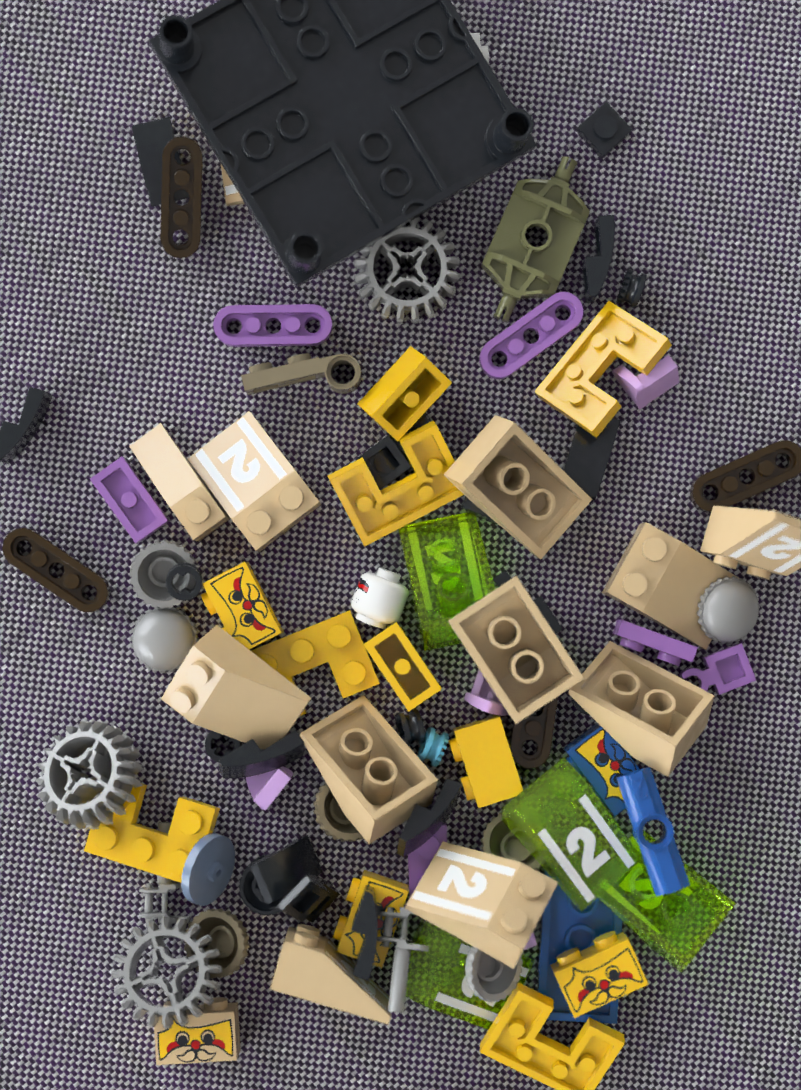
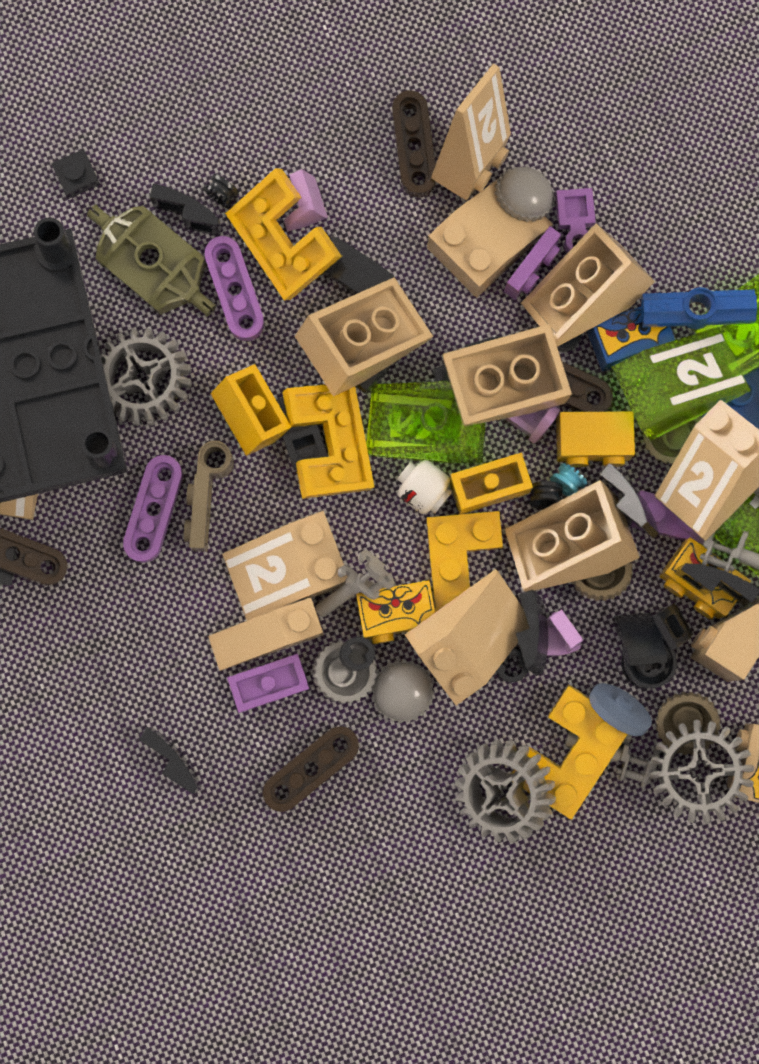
camera: 75 degrees left, 5 degrees down
(254, 559) = (357, 582): none -> light grey piece

